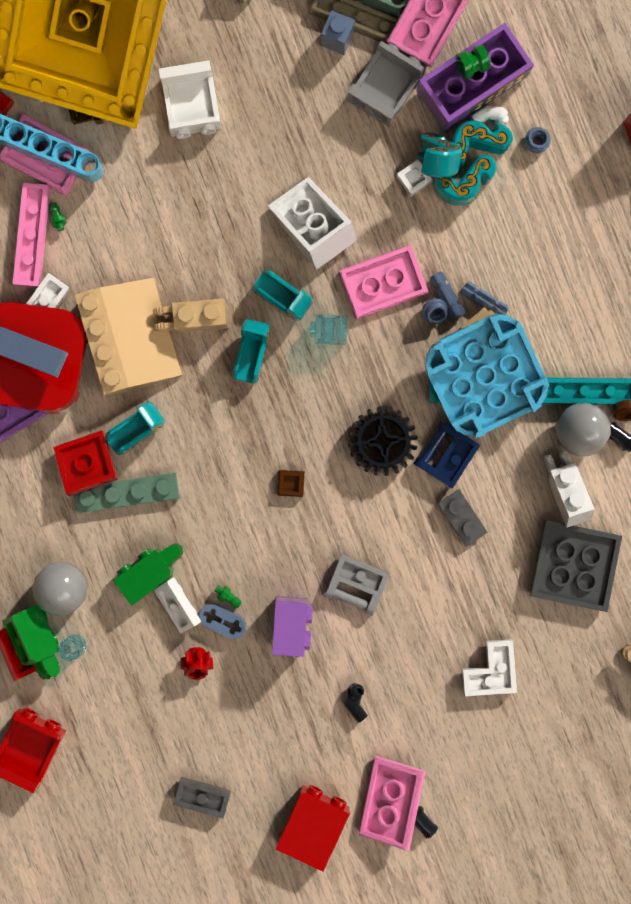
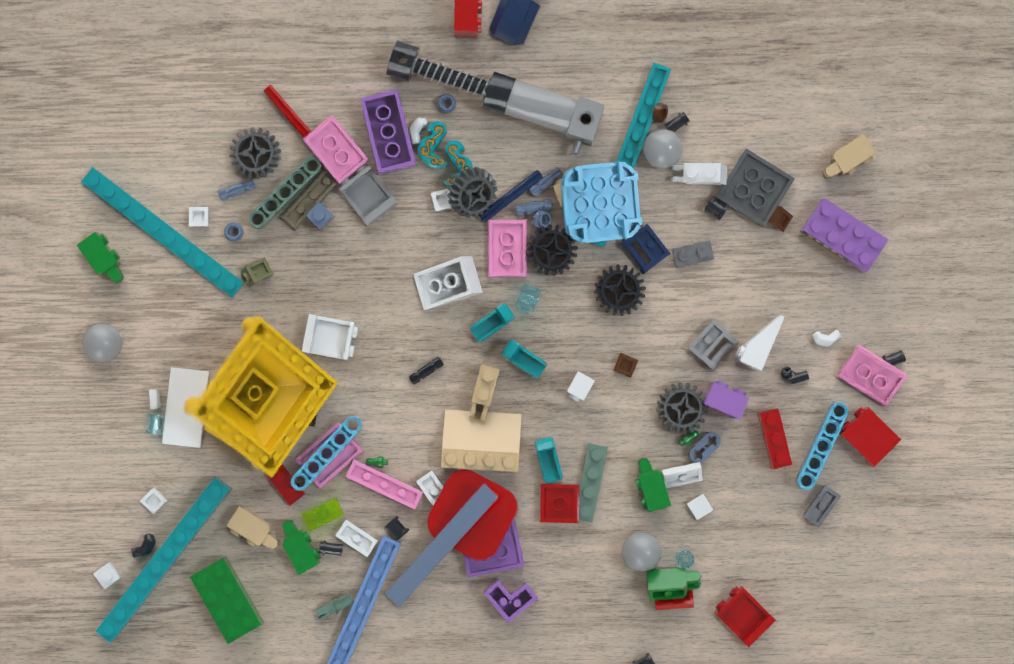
camera: 65 degrees left, 0 degrees up
(146, 642) = (699, 506): none -> white tile
(193, 236) = (426, 370): none -> black axle
(196, 663) = (727, 475): red gear -> none
(242, 435) = (580, 387): none -> white brick
(260, 563) = (665, 404): none -> dark grey gear
(265, 707) = (774, 438): none -> red brick
(289, 778) = (829, 439): none -> medium azure beam
(371, 643) = (756, 350): none -> white slope
(413, 335) = (555, 233): none -> black gear
(415, 727) = (826, 340): none -> white arm
(417, 208) = (476, 190): none -> dark grey gear
(439, 156) = (436, 177): teal animal -> none
(450, 261) = (511, 195): none -> dark blue axle
(473, 61) = (382, 132): green wheel -> none
(498, 676) = (811, 269): white plate -> none
(531, 525) = (716, 208): none -> black bush
(548, 612) = (780, 218): none -> reddish brown tile
(558, 702) = (844, 235): none -> medium lavender brick
(577, 207) = (507, 96): none -> piece

